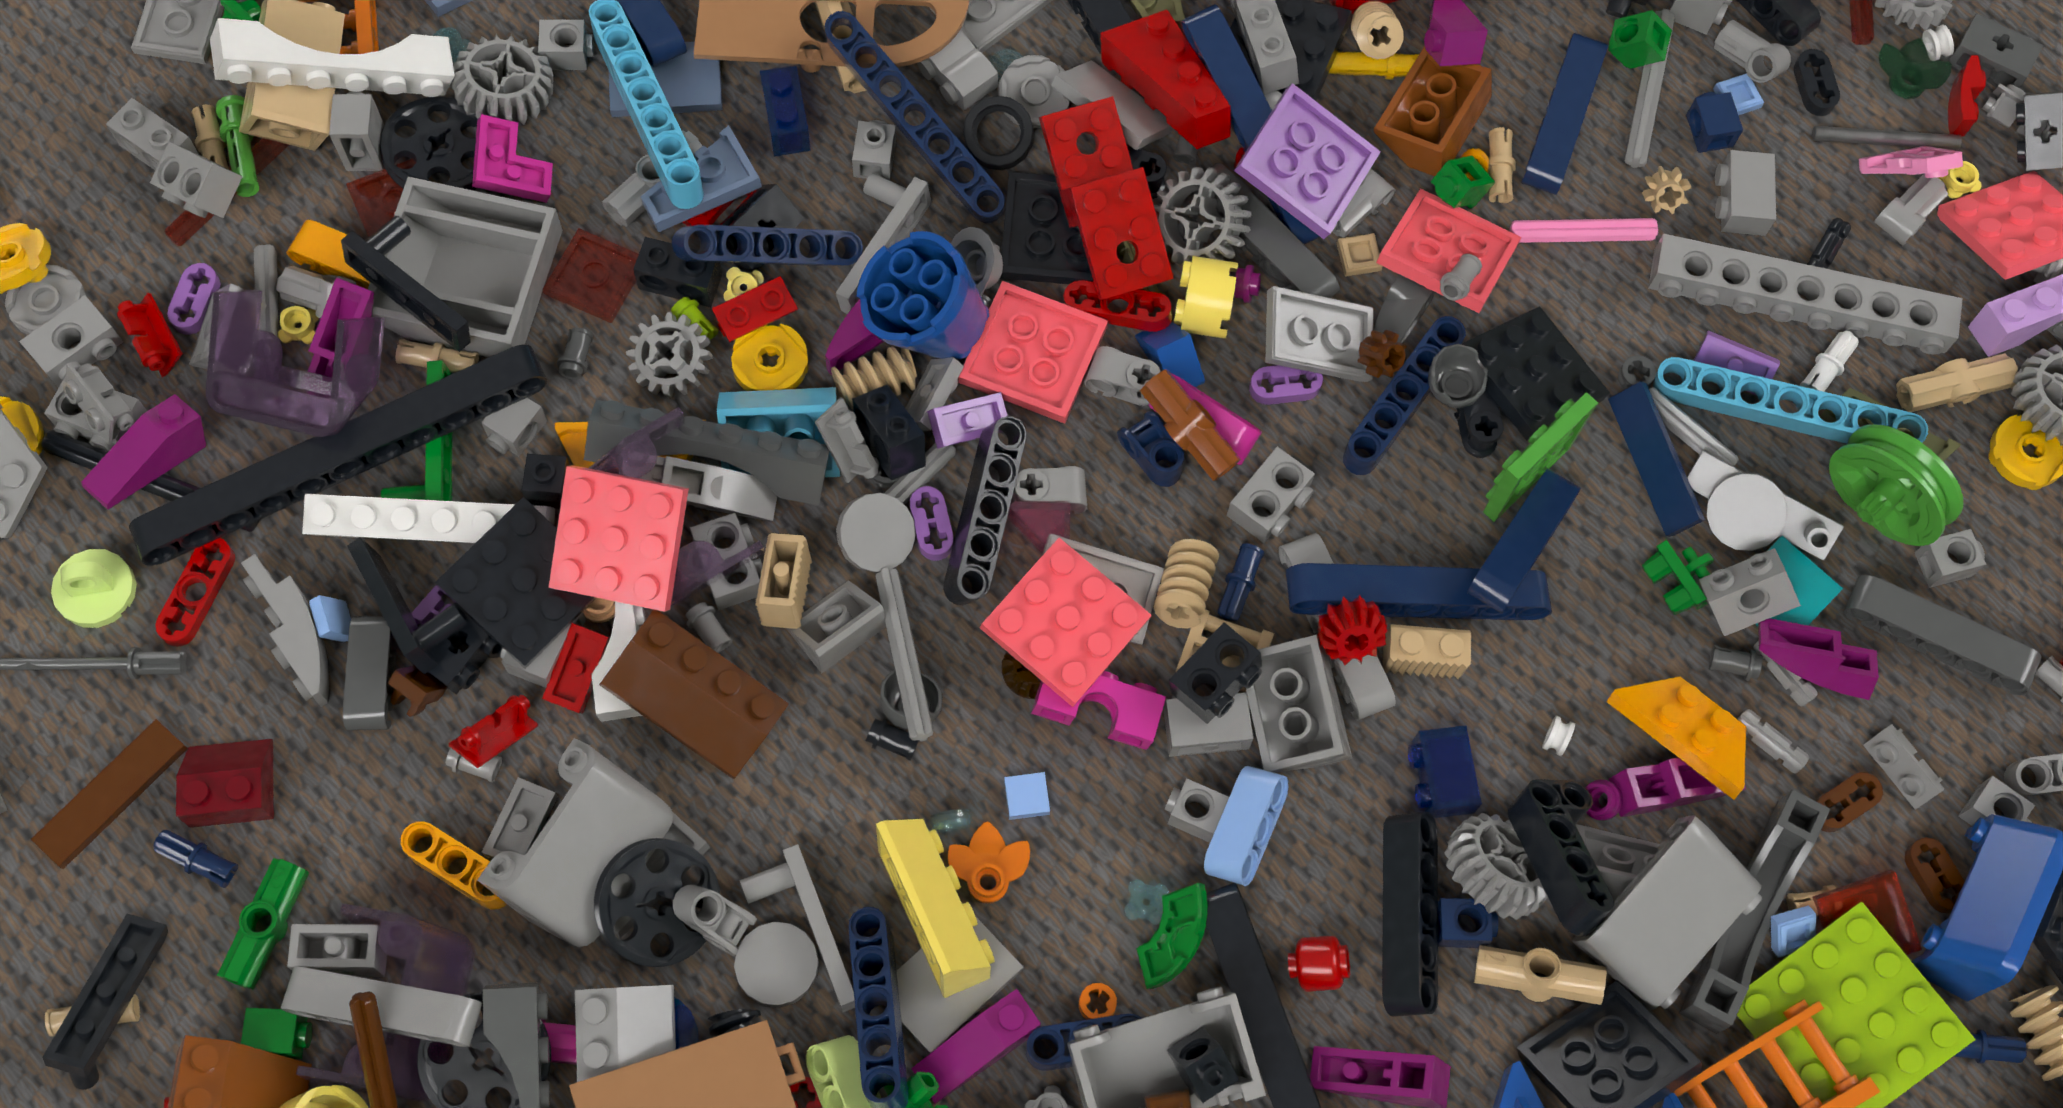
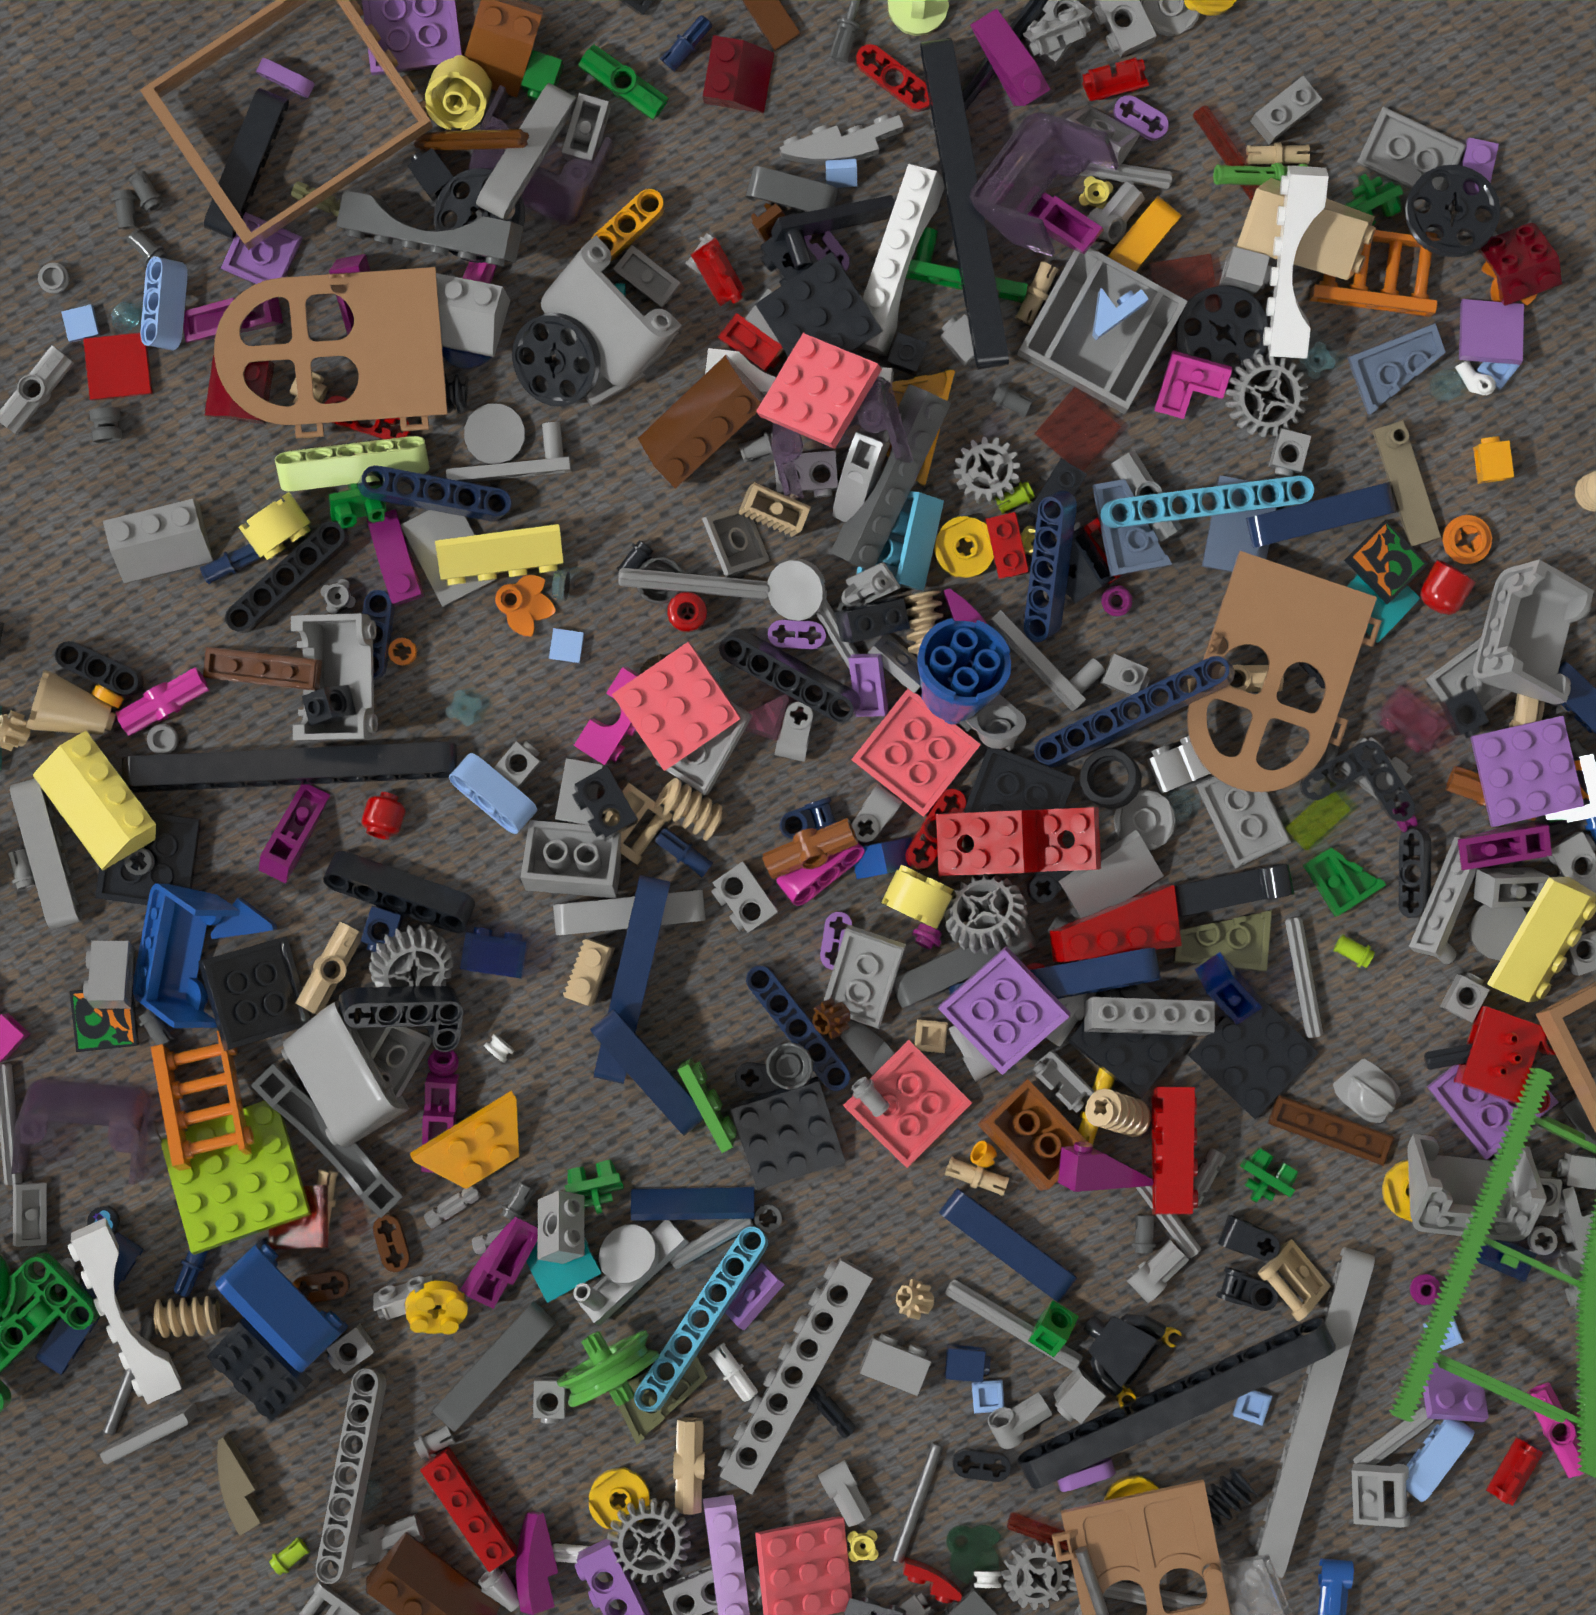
camera: 110 degrees right, 20 degrees up
(195, 181) = (1231, 136): light grey brick -> none
(369, 260) = (1116, 254): black piece -> none
(441, 246) = (1109, 316): none -> light blue slope
(718, 921) = (535, 396): light grey piece -> none
(785, 110) = (1178, 613): clear blue brick -> none
(790, 173) = (1126, 601): none -> magenta plate
(951, 645) = (678, 604): none -> red head
(1177, 935) = (430, 720): green tile -> none
(1352, 630) = (608, 913): red gear -> none
(1358, 100) = (1055, 1072): none -> light grey hinge
(1456, 188) = (961, 1128): green brick -> none
(1585, 230) = (902, 1222): bright pink axle -> none
(1792, 930) = (310, 1163): light blue tile -> none
(1907, 716) = (443, 1320): none -> yellow plate
(1919, 160) = (882, 1508): bright pink wing -> none

